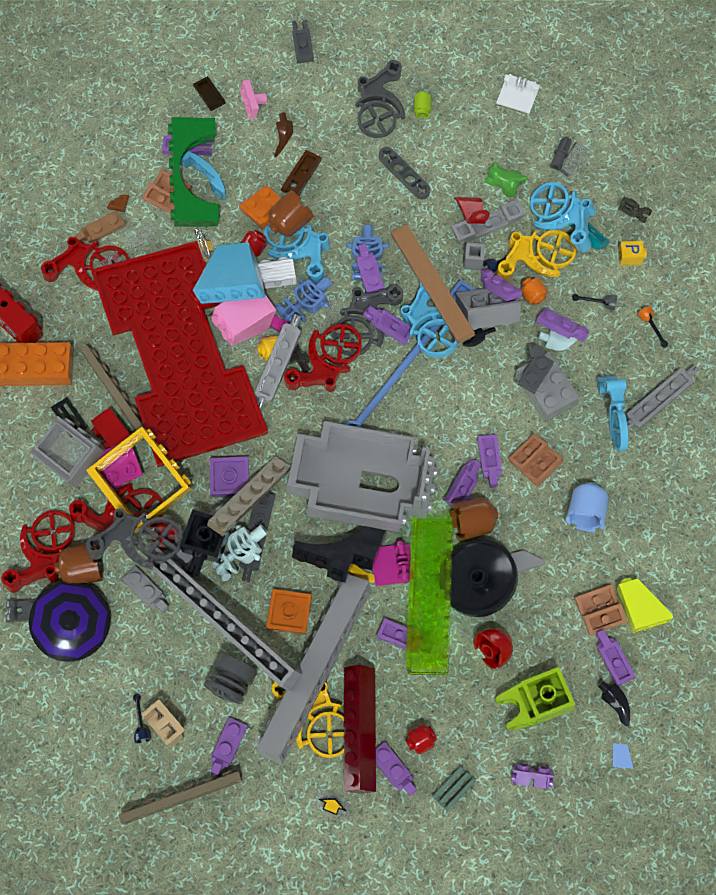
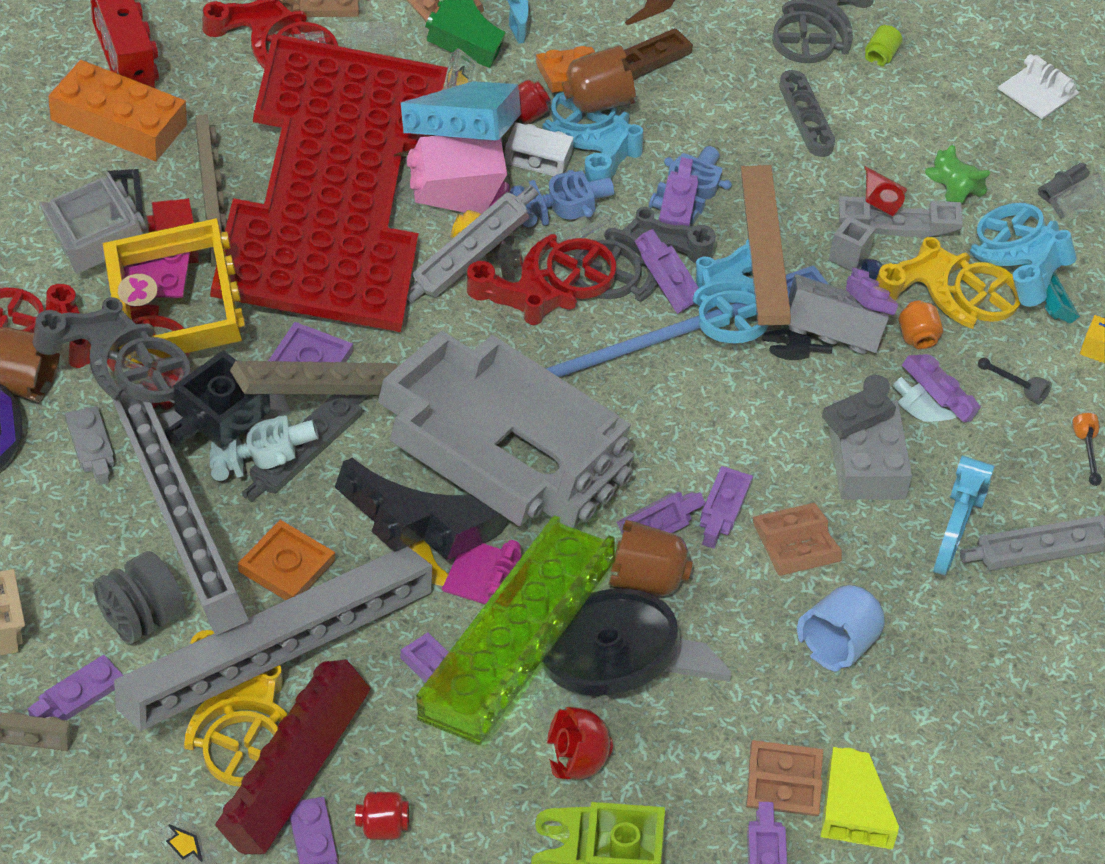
camera: 20 degrees right, 20 degrees down
(122, 490) = (137, 289): none -> tan sticker

